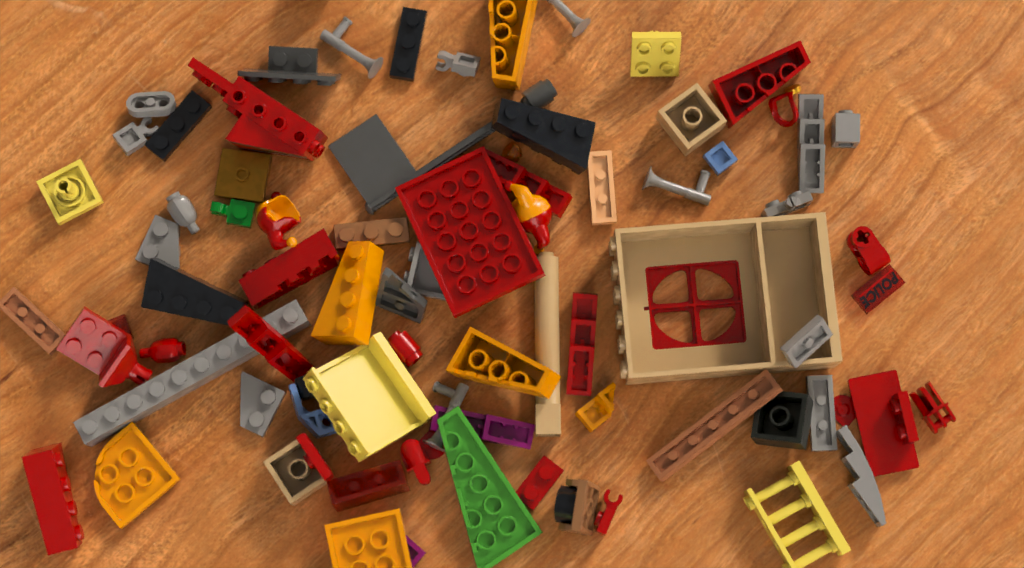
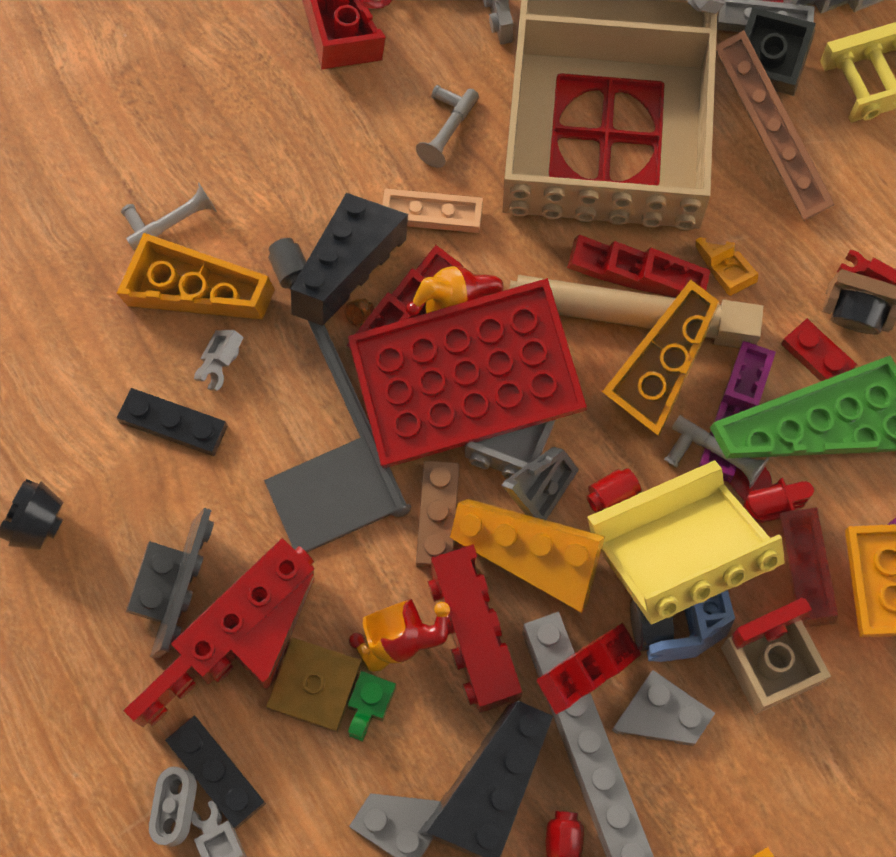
camera: 80 degrees left, 10 degrees down
(182, 211) = (352, 782): light grey plant -> none
(333, 39) = (140, 521): light grey piece -> none
(655, 54) = (268, 111): light yellow plate -> none
(691, 119) = (365, 87): tan brick -> none
(720, 158) = (421, 70): medium blue plate -> none

